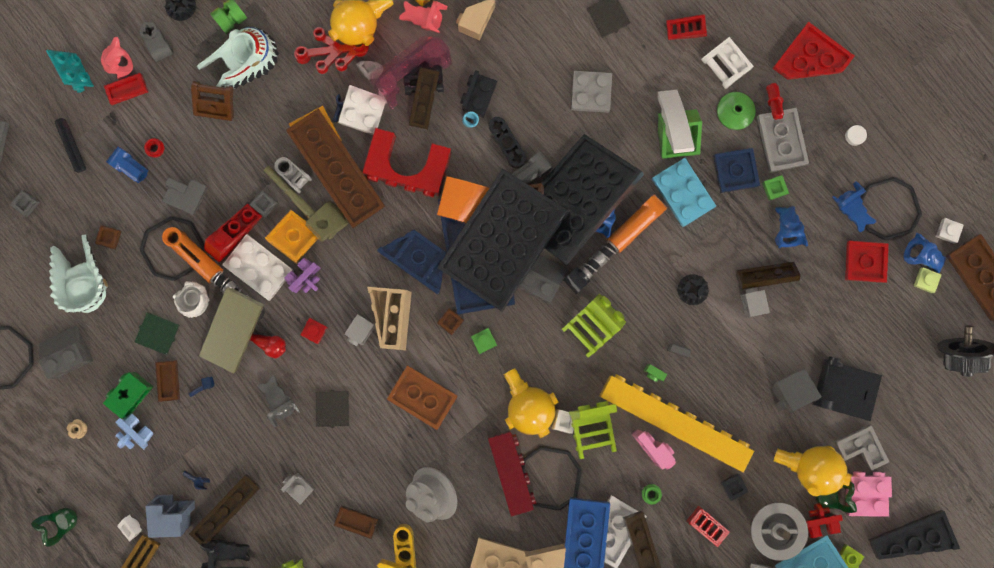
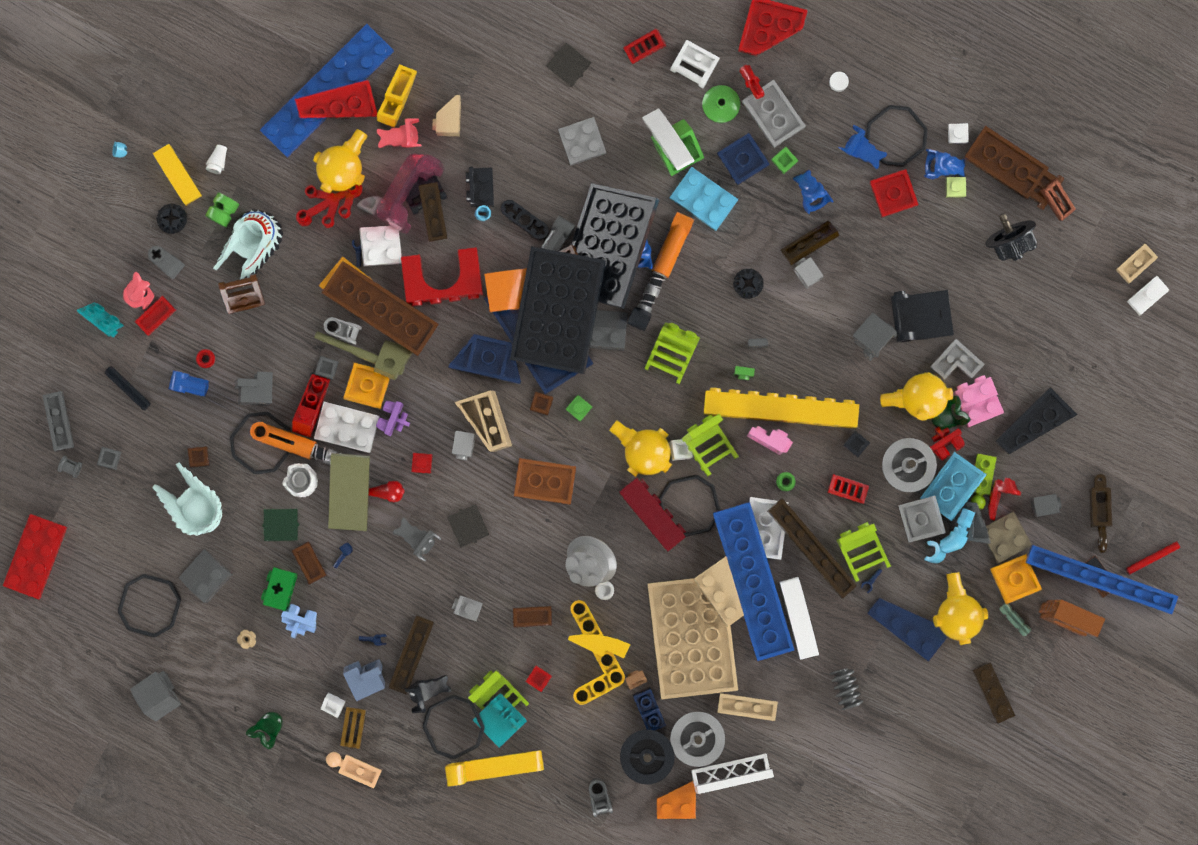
camera: 15 degrees left, 0 degrees up
(435, 527) = (604, 590): none -> white tile

